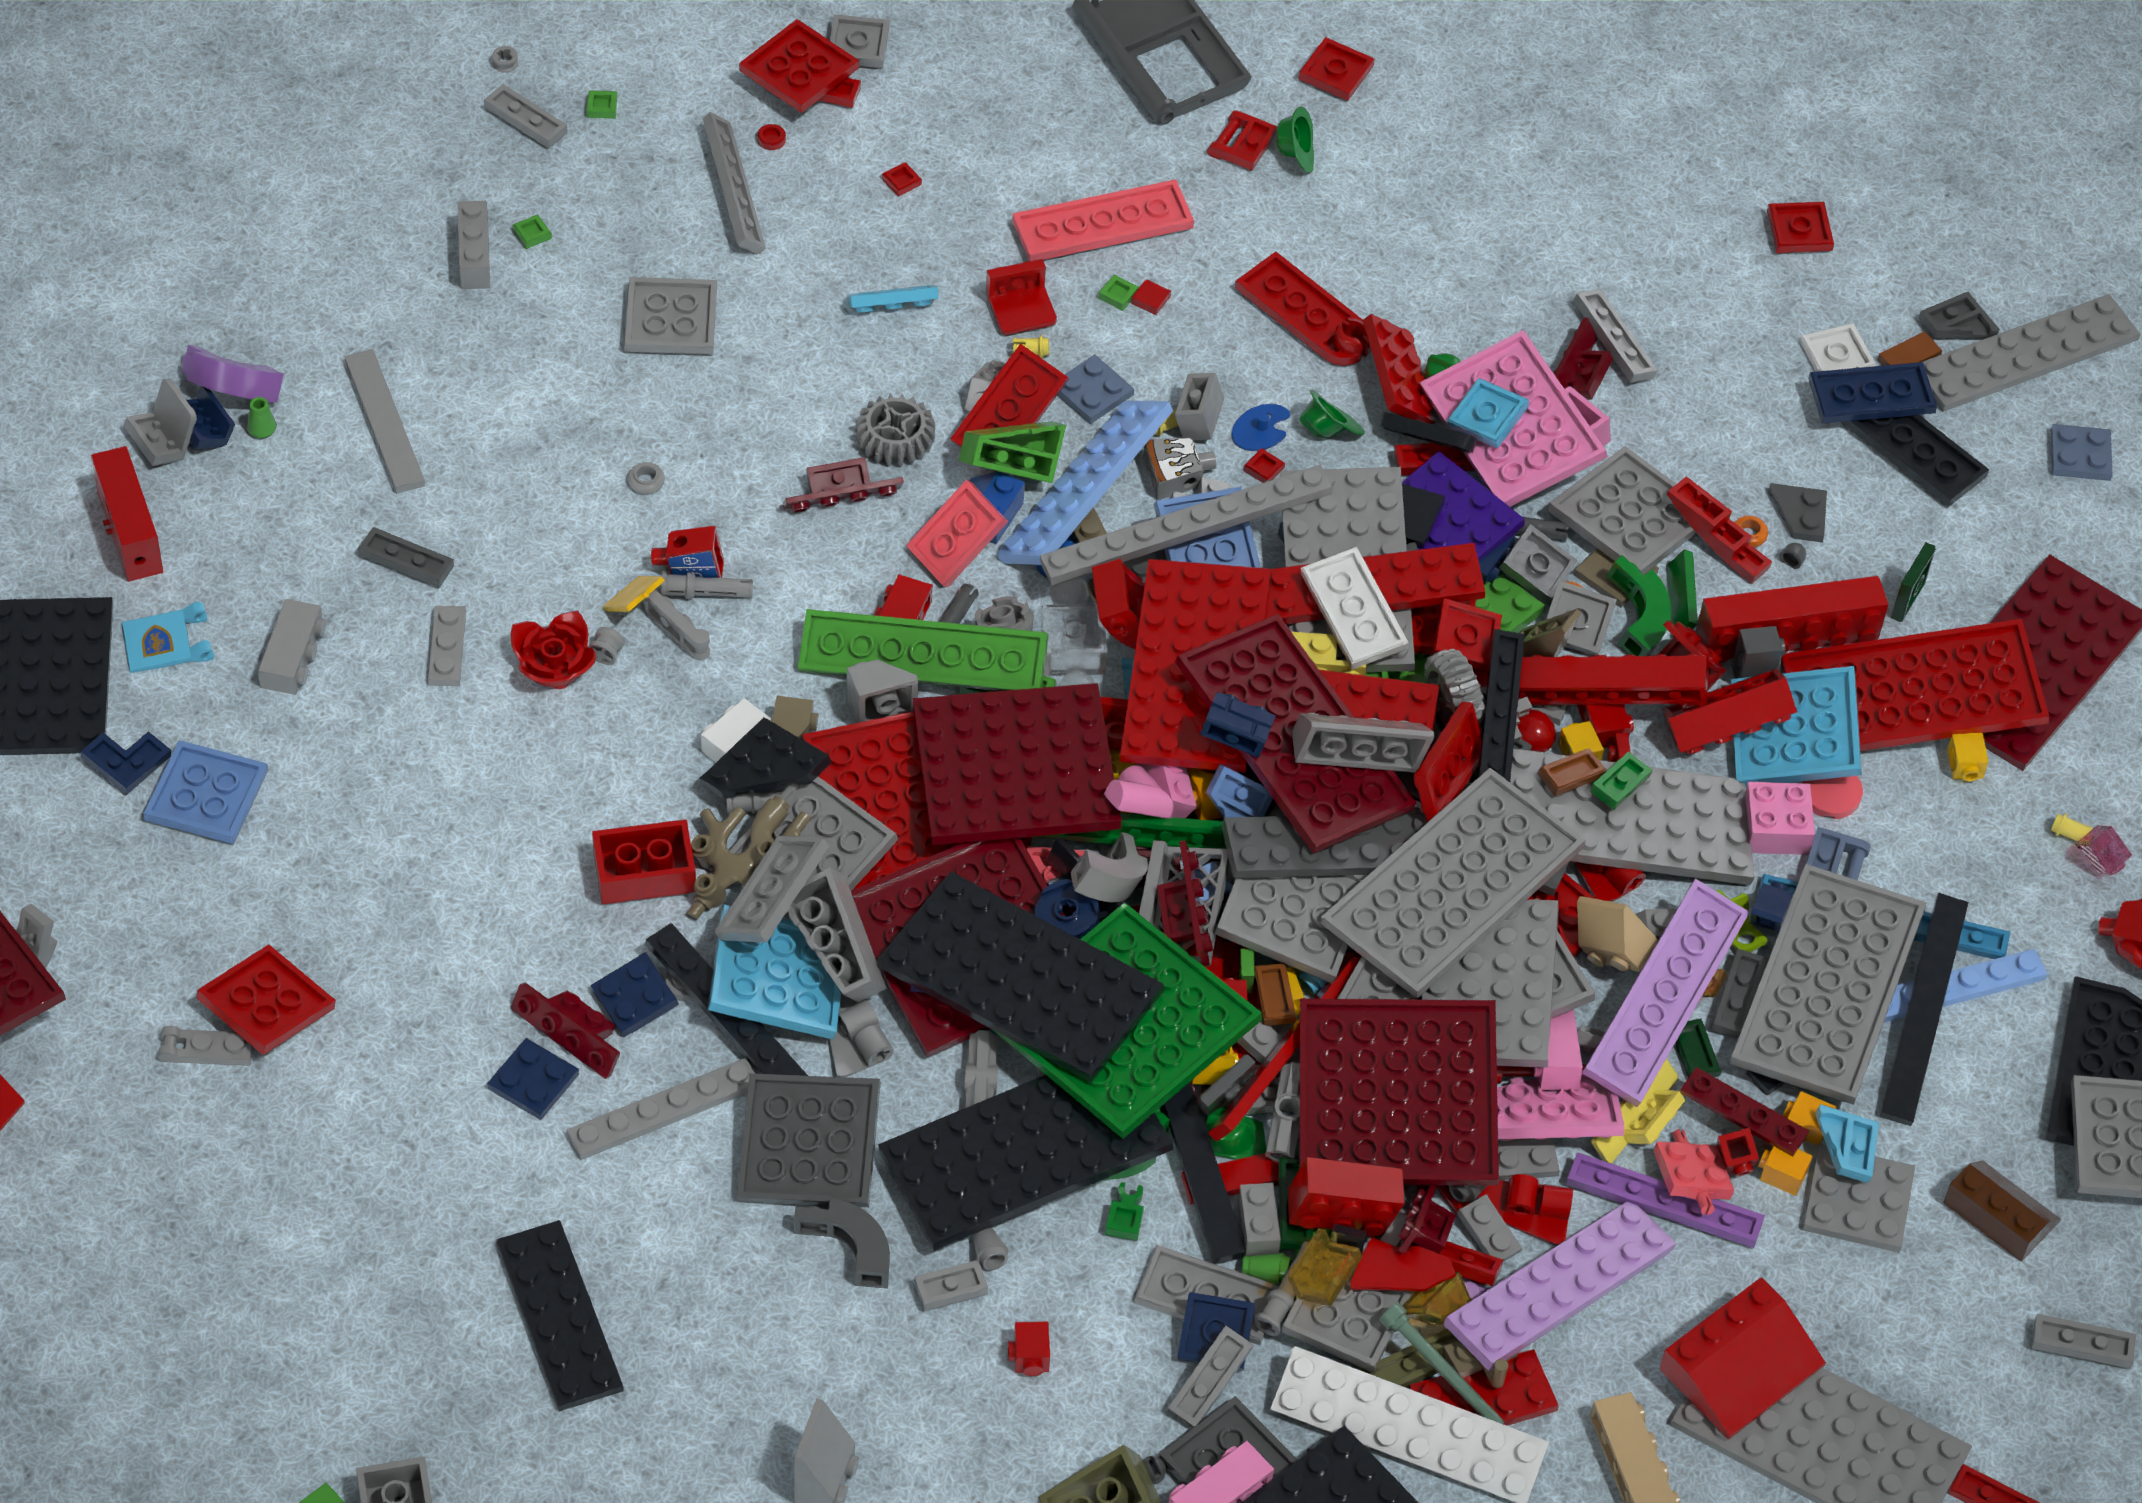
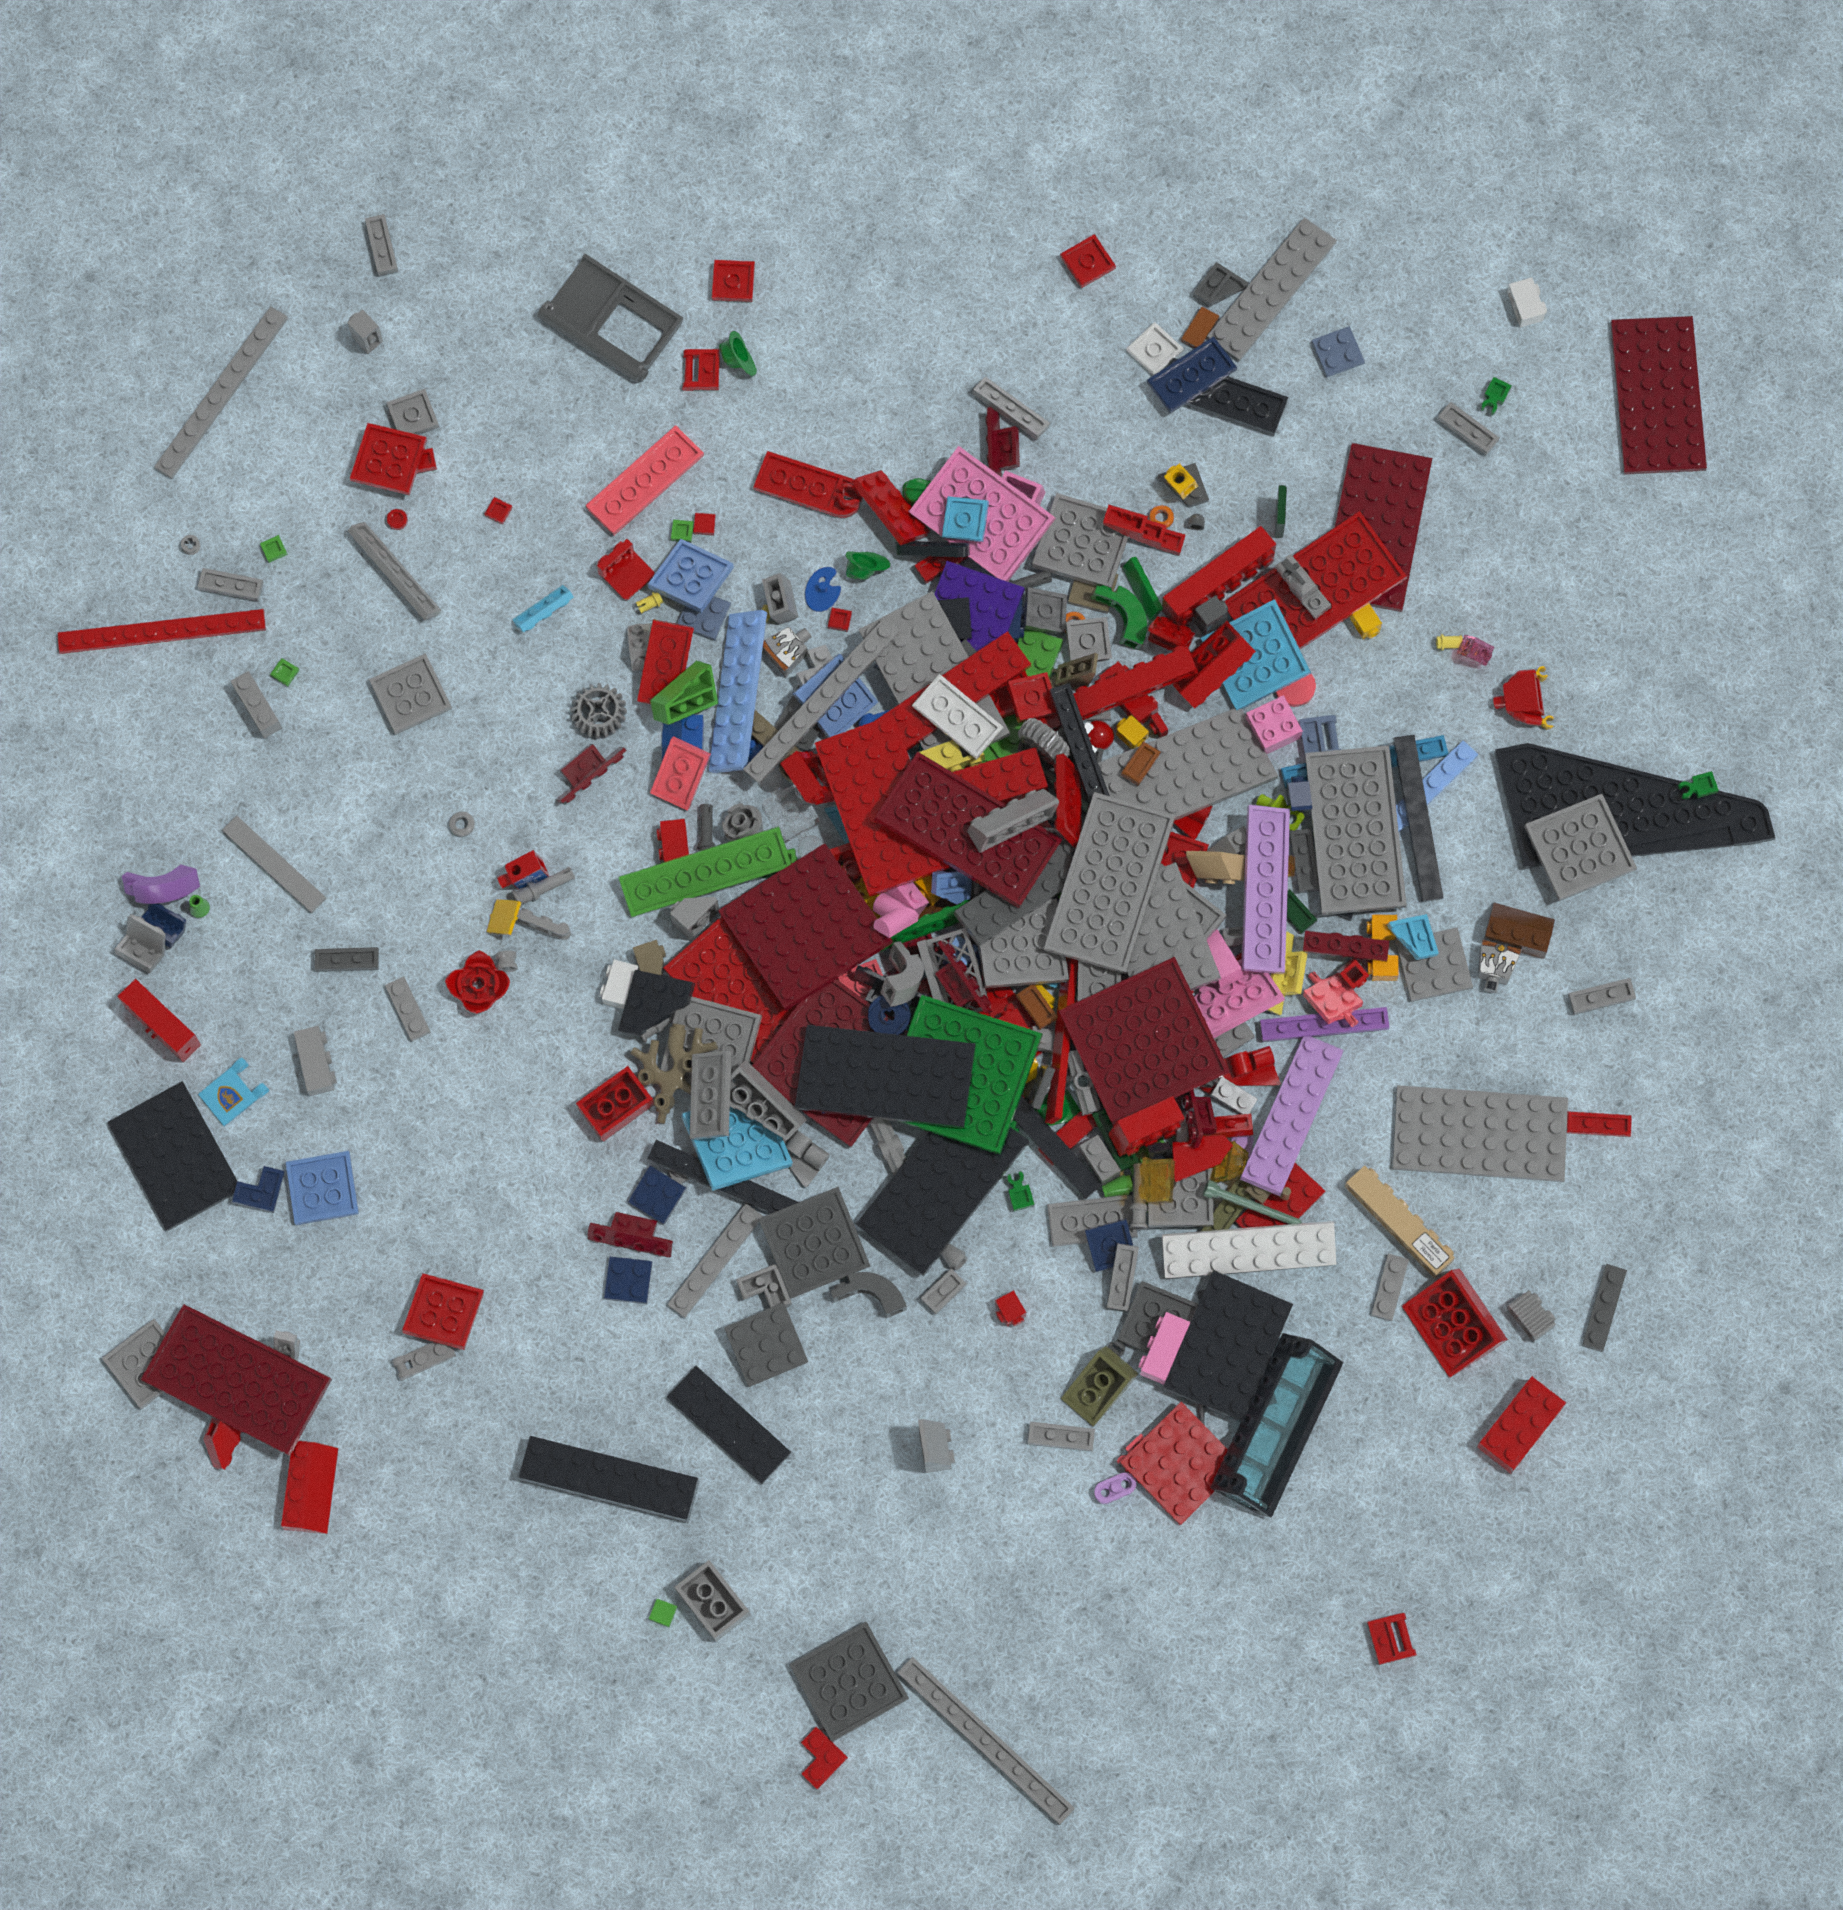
camera: 20 degrees left, 20 degrees up
(355, 1302) = (609, 1479): none -> black brick
(412, 129) = (161, 631): none -> red plate
(669, 1235) = (766, 1344): none -> dark grey plate
(718, 1164) = (765, 1281): none -> light grey brick
(1099, 336) = (690, 575): none -> medium blue plate
(1237, 724) = (936, 849): dark blue brick -> none
(1246, 968) = (1012, 998): bright green tile -> none
(1621, 780) = (1172, 754): green plate -> none
(1742, 1358) = (1418, 1112): red slope -> none
(1796, 495) = (1186, 487): none -> yellow brick
(1900, 669) = (1303, 587): none -> light grey plate
(1950, 1233) = (1496, 964): none -> torso

